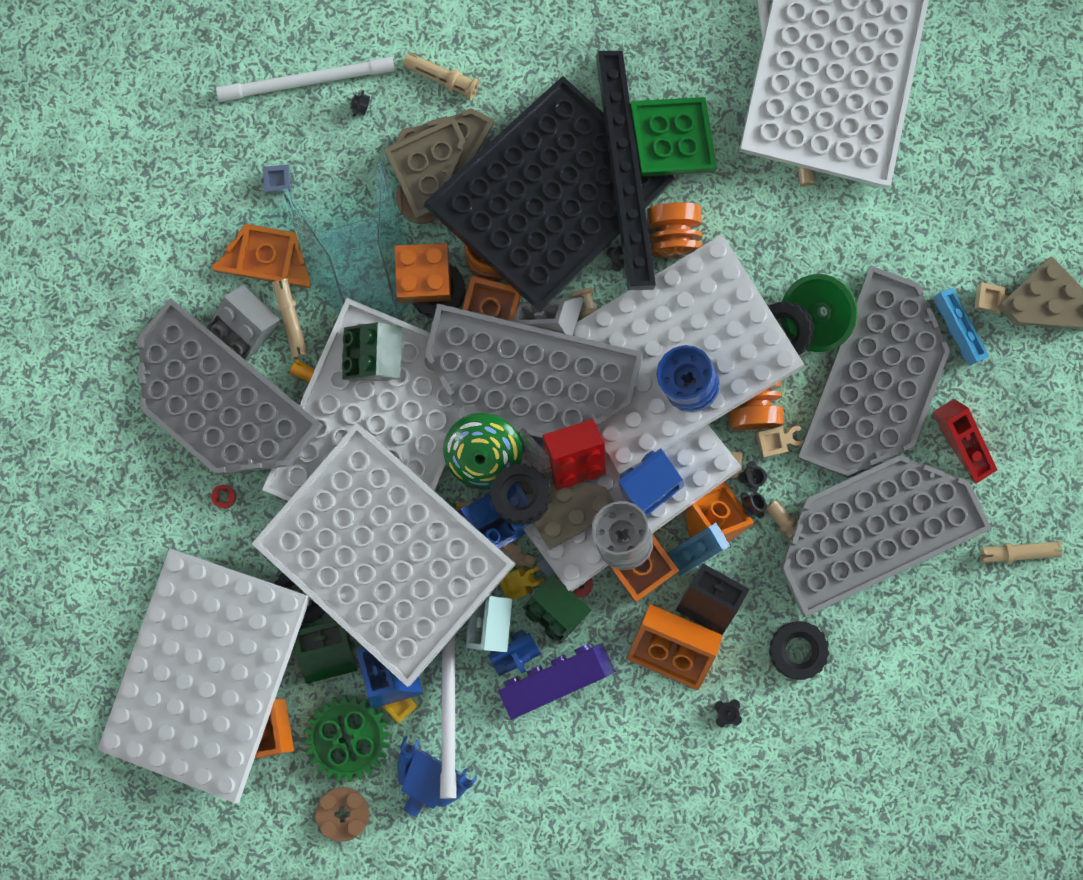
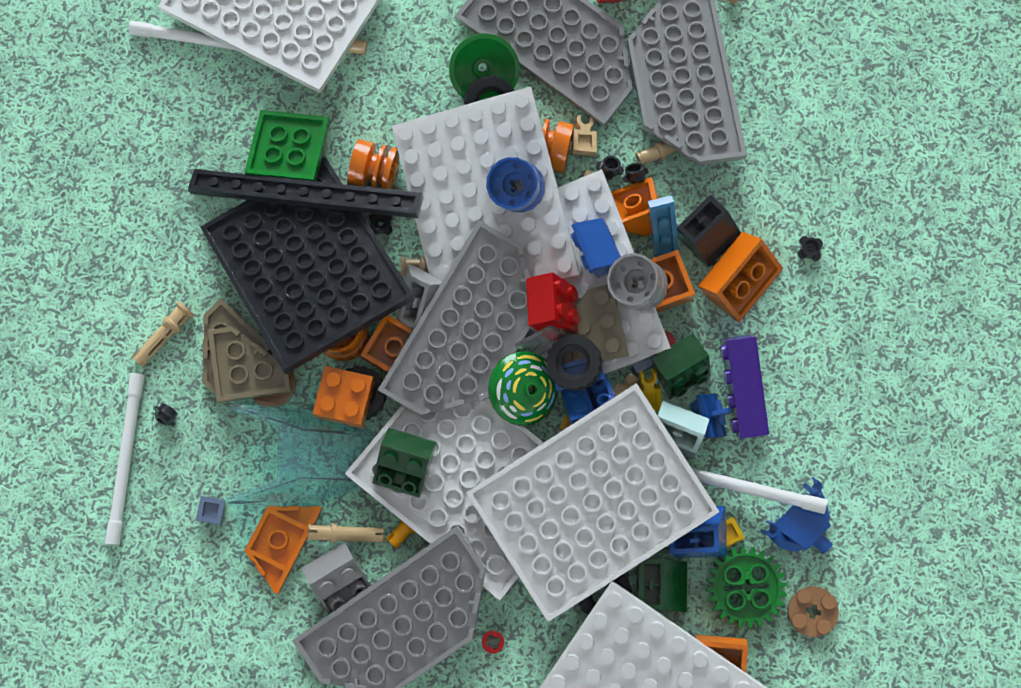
camera: 75 degrees left, 5 degrees down
(813, 636) = (779, 156): black tyre -> none

